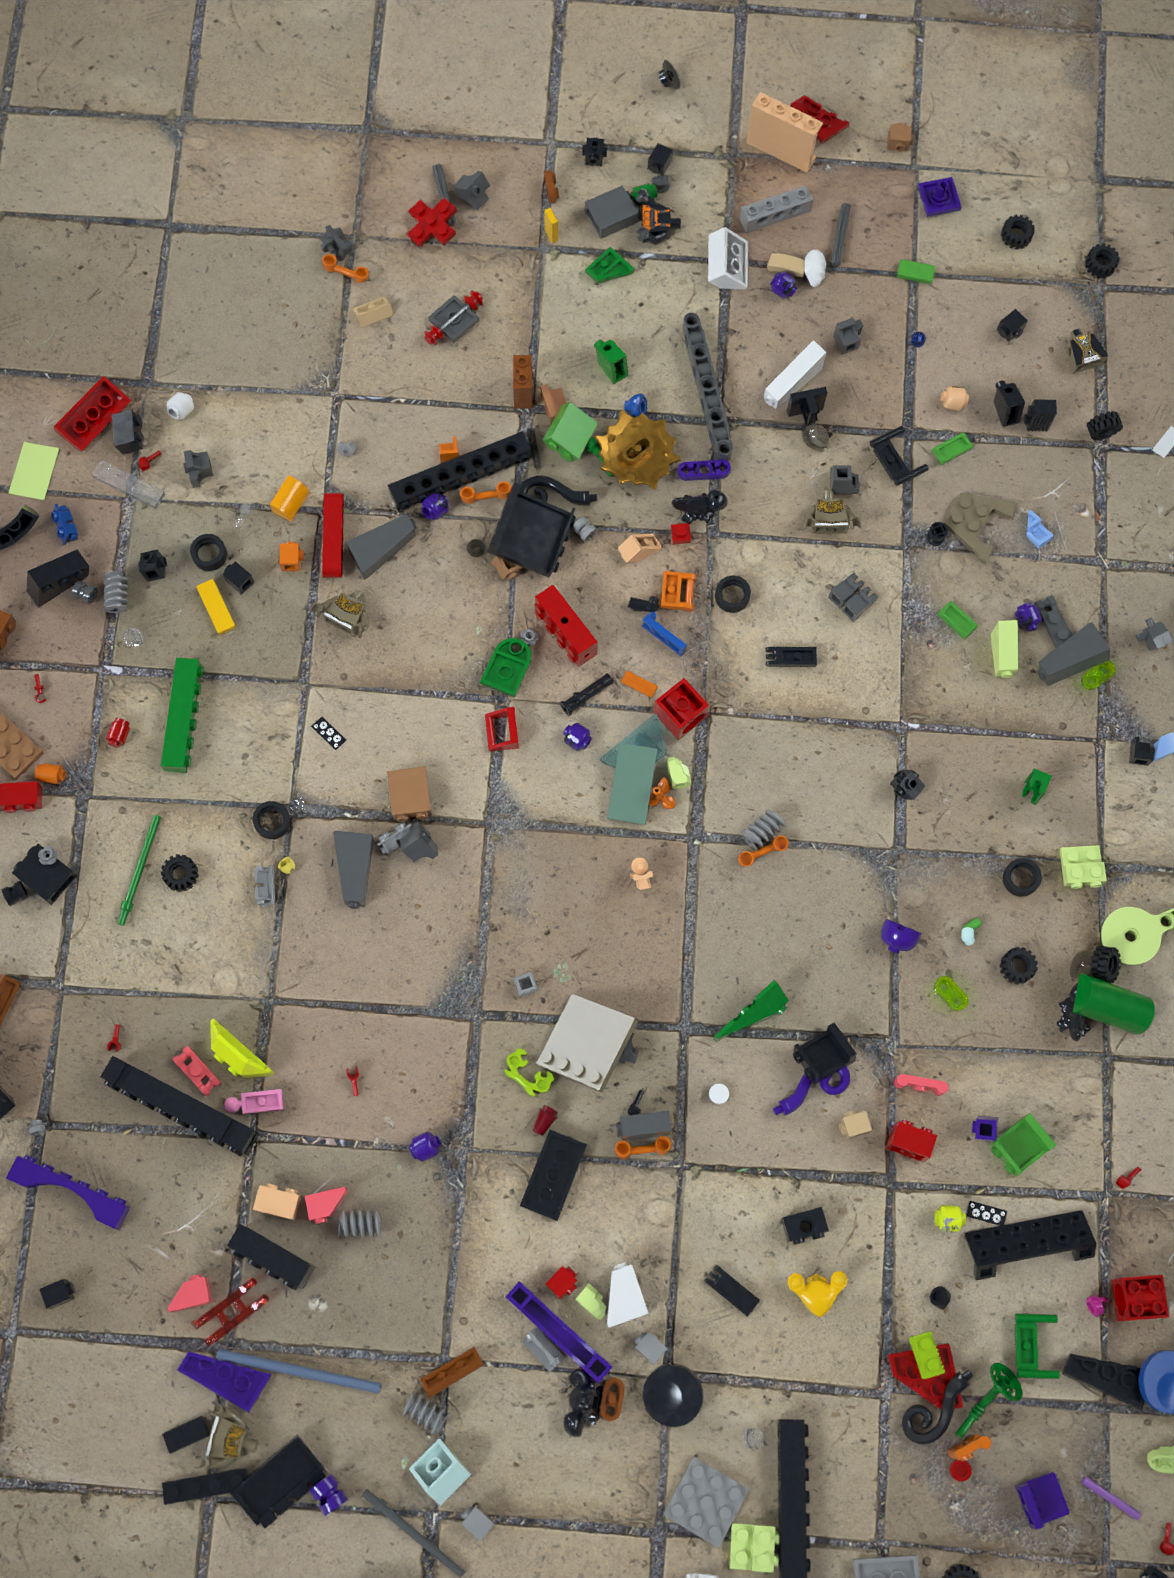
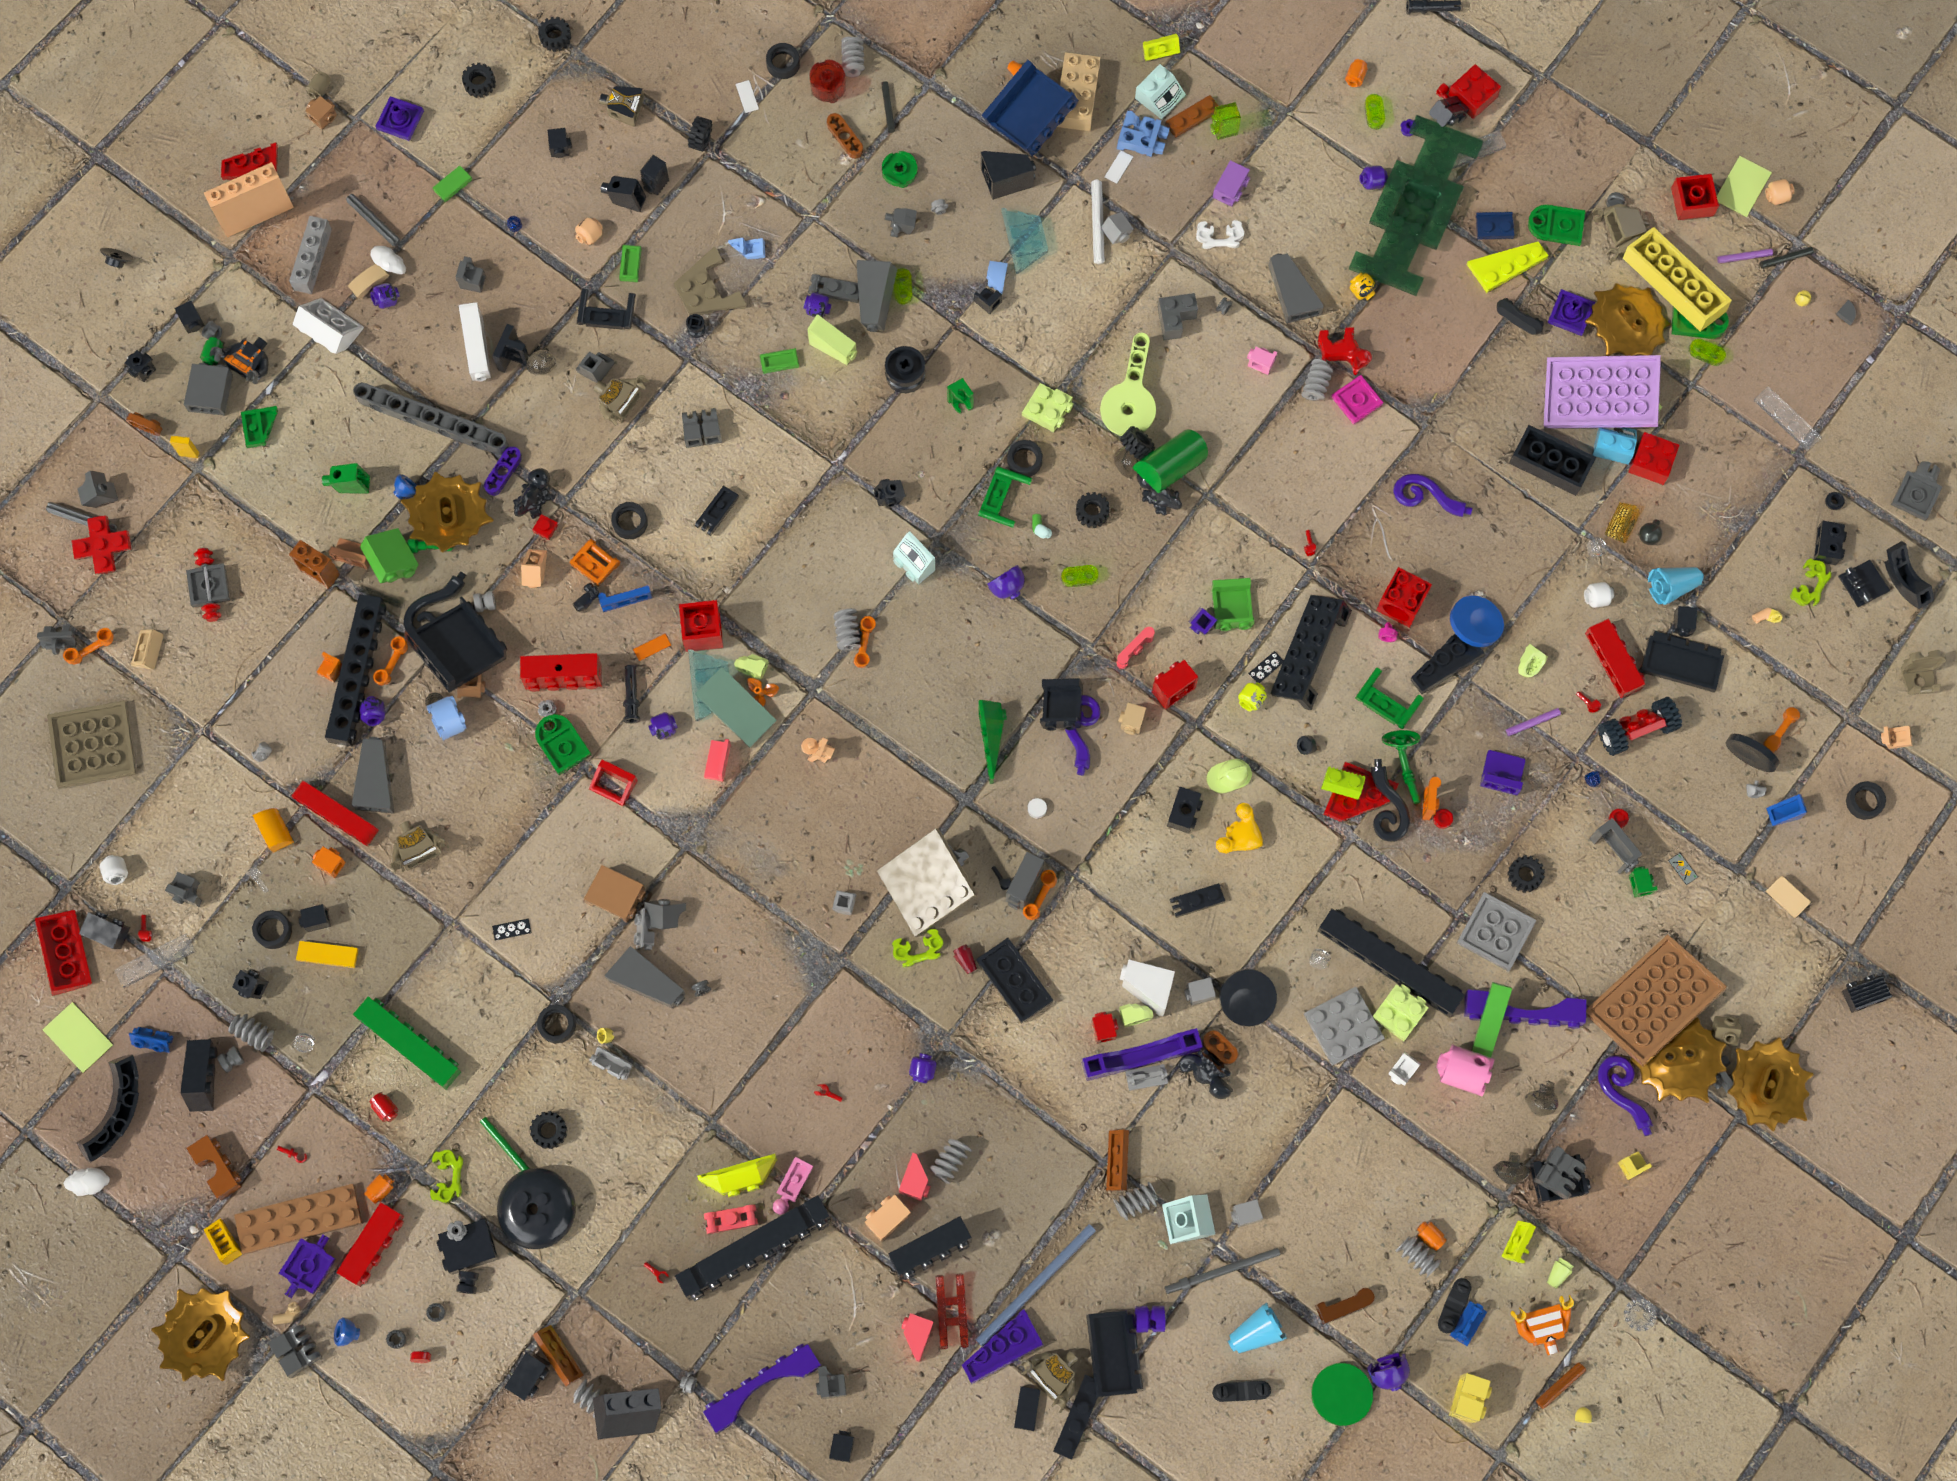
camera: 55 degrees left, 0 degrees up
(78, 828) = (446, 1159): none -> lime helmet
(104, 1248) = (830, 1385): none -> dark grey brick
(121, 916) = (554, 1213): none -> black brick
(269, 323) = (91, 744): none -> dark tan plate
(375, 915) = (701, 988): none -> dark grey bush
(466, 563) = (446, 717): none -> light blue brick
(578, 800) = (717, 760): none -> coral panel
(864, 843) = (914, 558): none -> light aqua slope
(864, 1245) = (1229, 776): none -> yellowish green piece
(920, 120) = (318, 85): none -> dark tan brick
(973, 875) = (997, 493): none -> green plate
(1025, 725) = (905, 369): none -> black wheel

